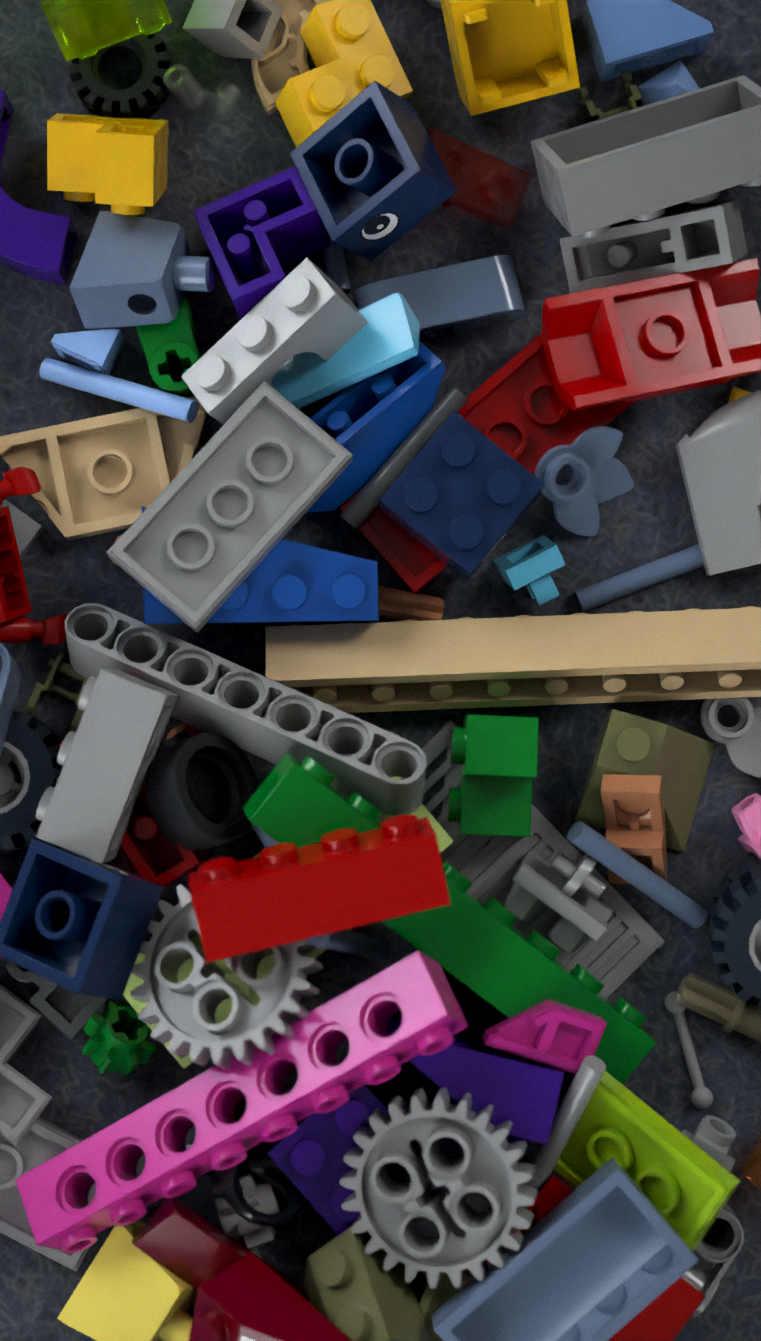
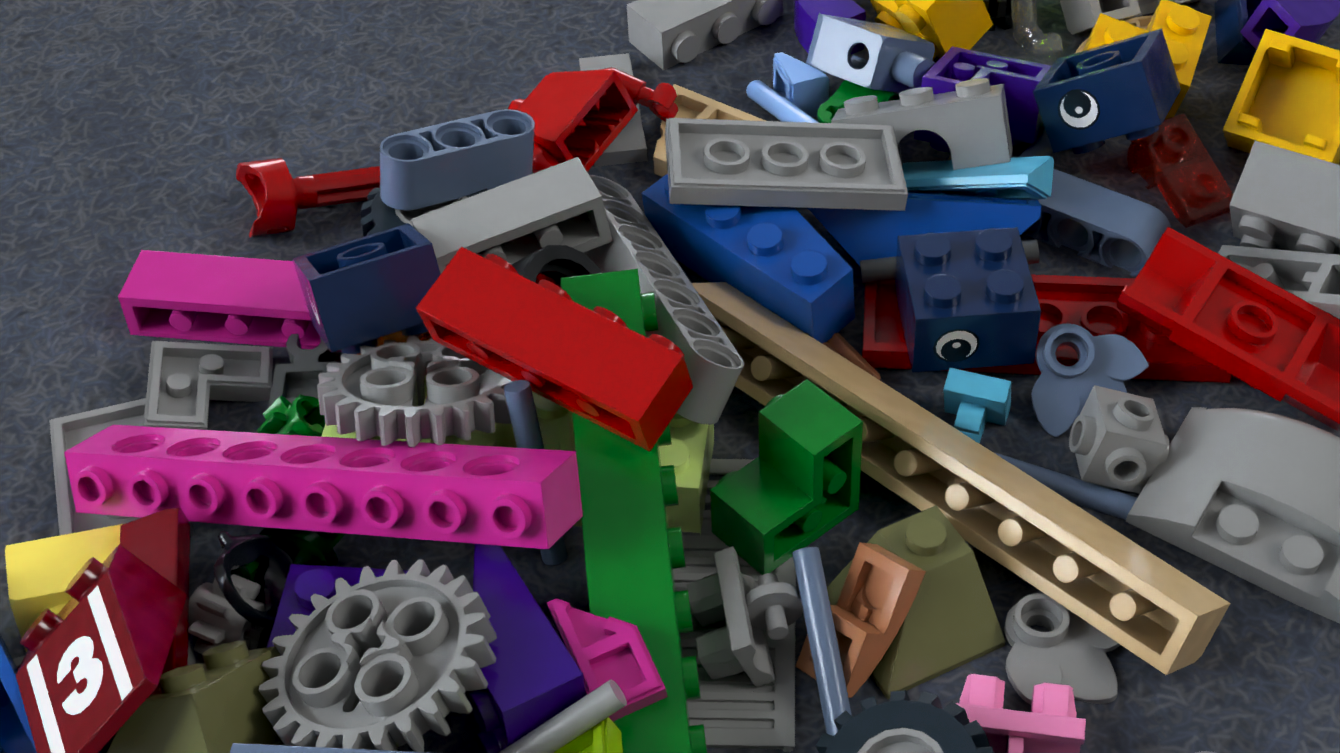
camera: 50 degrees right, 40 degrees down
(658, 521) = (1118, 440): none -> light grey brick

